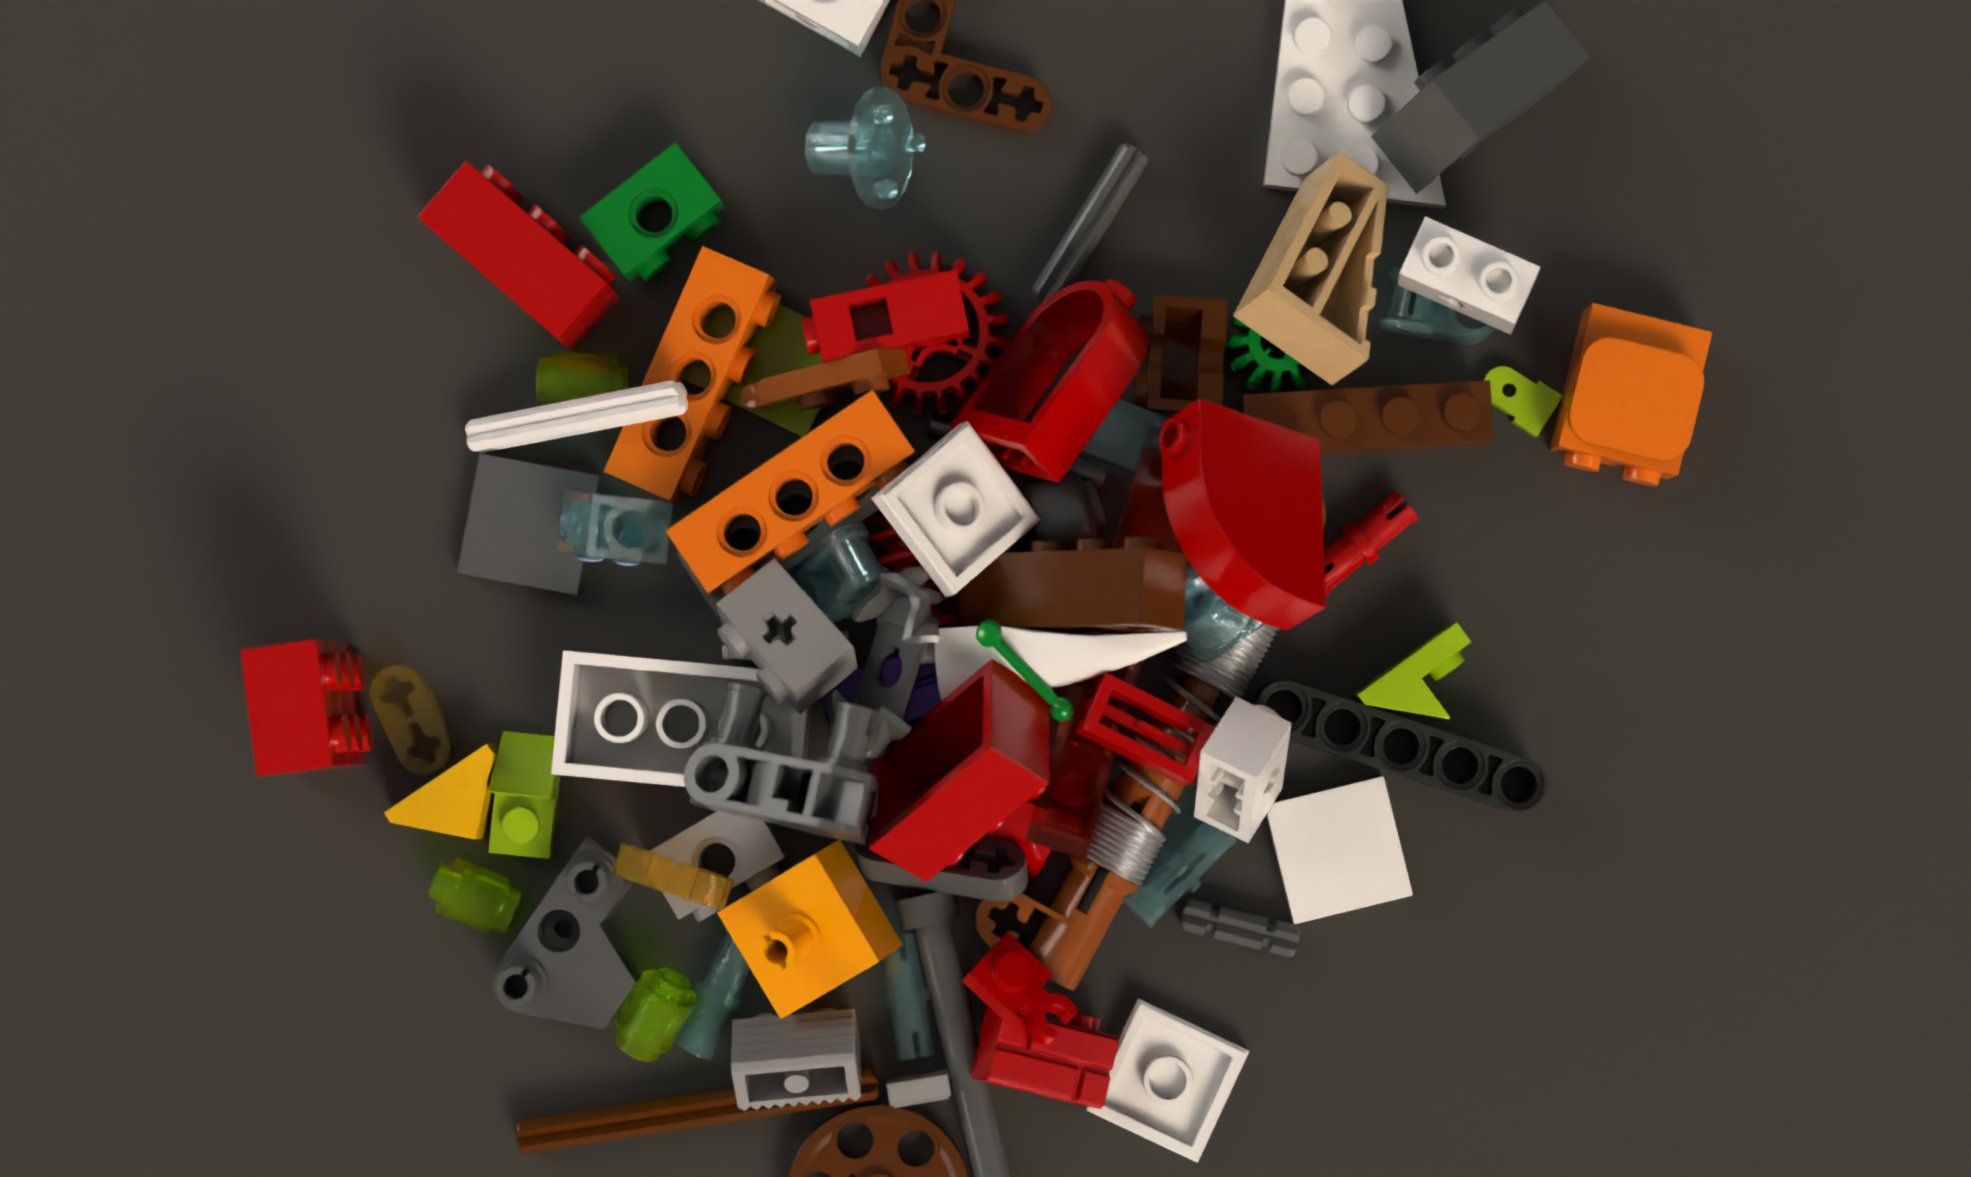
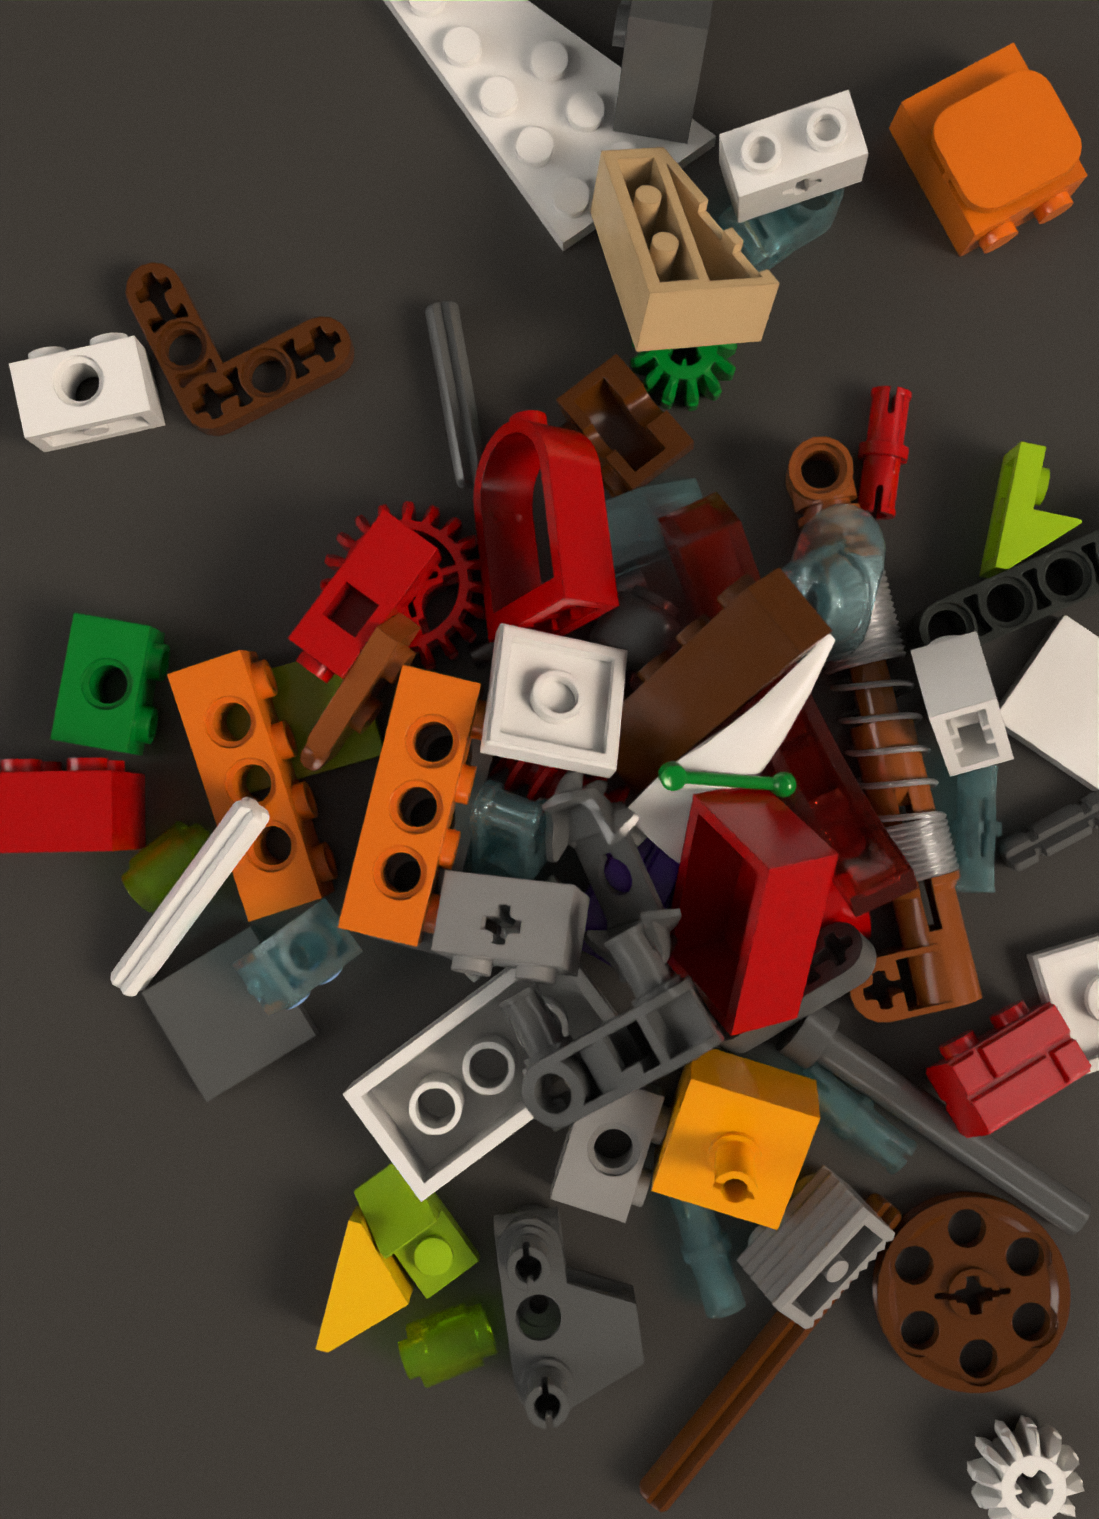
camera: 40 degrees left, 0 degrees up
(305, 707) = (174, 1332): red piece -> none
(399, 727) = (267, 1261): clear yellow beam -> none
(654, 1014) = (671, 1310): clear neon green brick -> none
(672, 876) = (591, 1196): clear yellow beam -> none
(870, 147) = (231, 483): clear light blue piece -> none
(919, 1088) = (928, 1180): light grey tile -> none
(1012, 982) = (940, 1039): red plate -> none
(1098, 708) = (814, 757): red tile -> none
(1247, 510) = (793, 490): red brick -> none
(1383, 417) = (806, 351): reddish brown brick -> none
(1530, 403) = (914, 231): lime piece -> none

